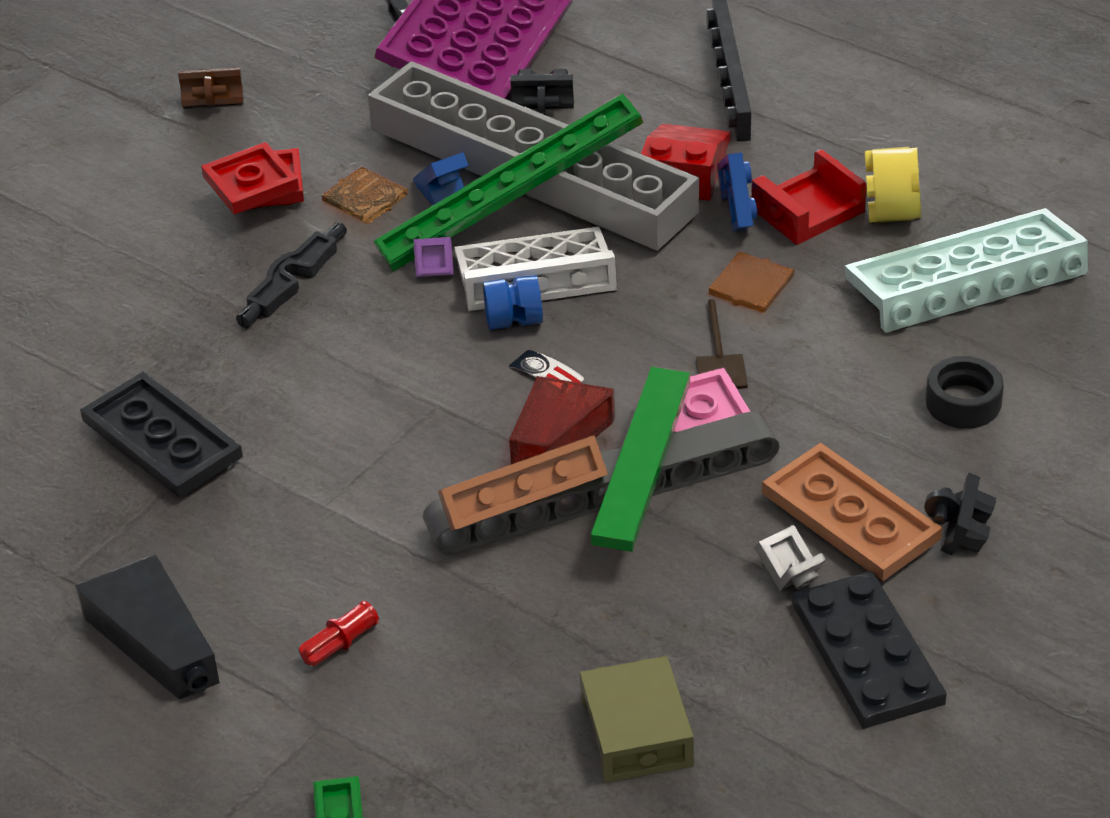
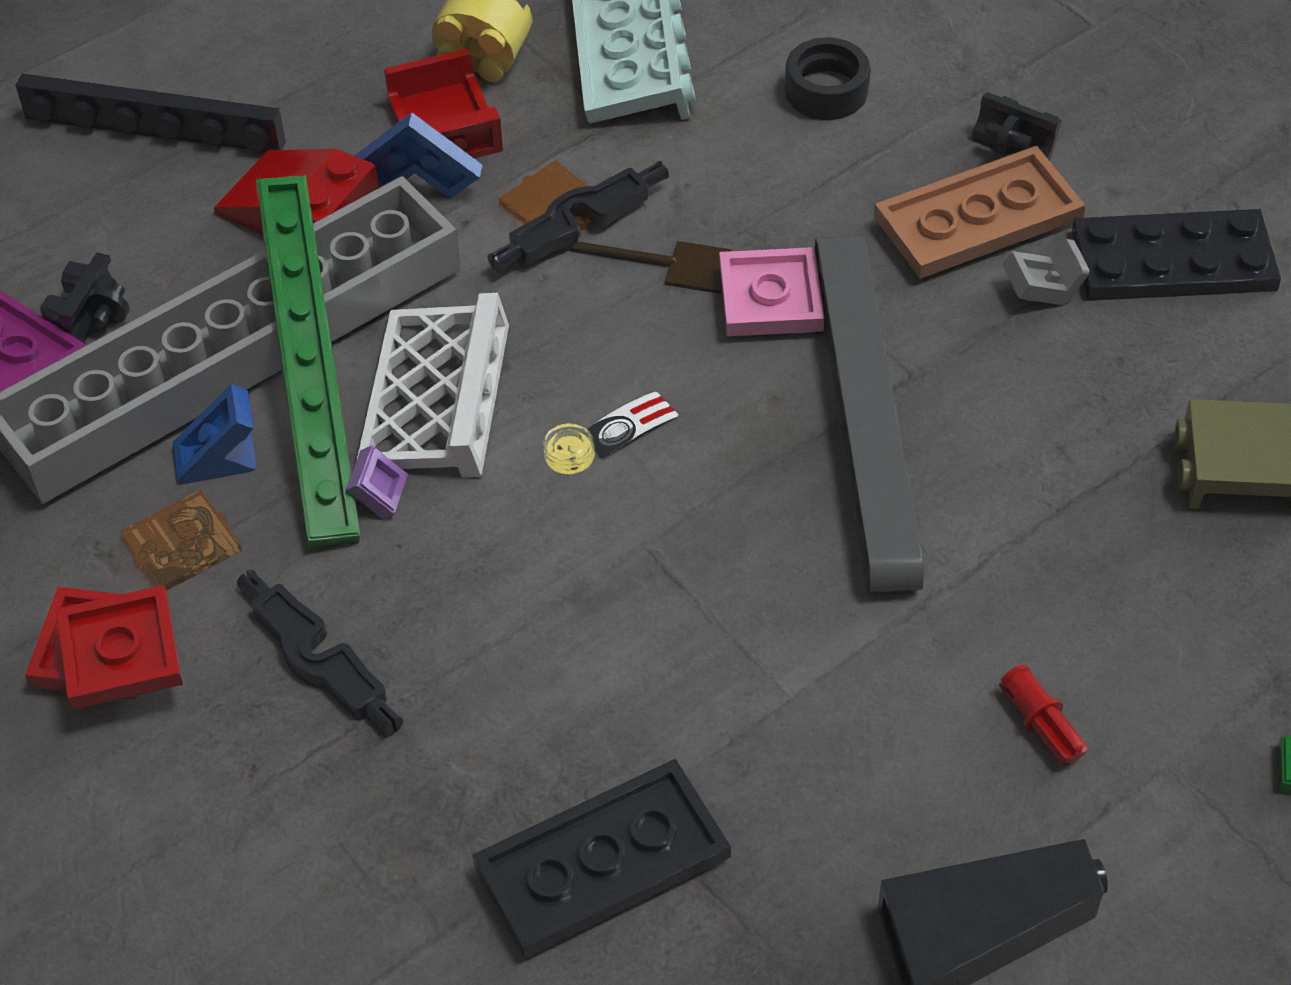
camera: 75 degrees left, 10 degrees up
(506, 343) = (569, 448): none -> clear tile
(512, 302) = (516, 416): blue wheel -> none
(522, 482) = (895, 460): nougat plate -> none
(559, 415) = (752, 426): clear red slope -> none
(640, 460) = (874, 347): green tile -> none
(750, 296) = (558, 226): none -> black piece

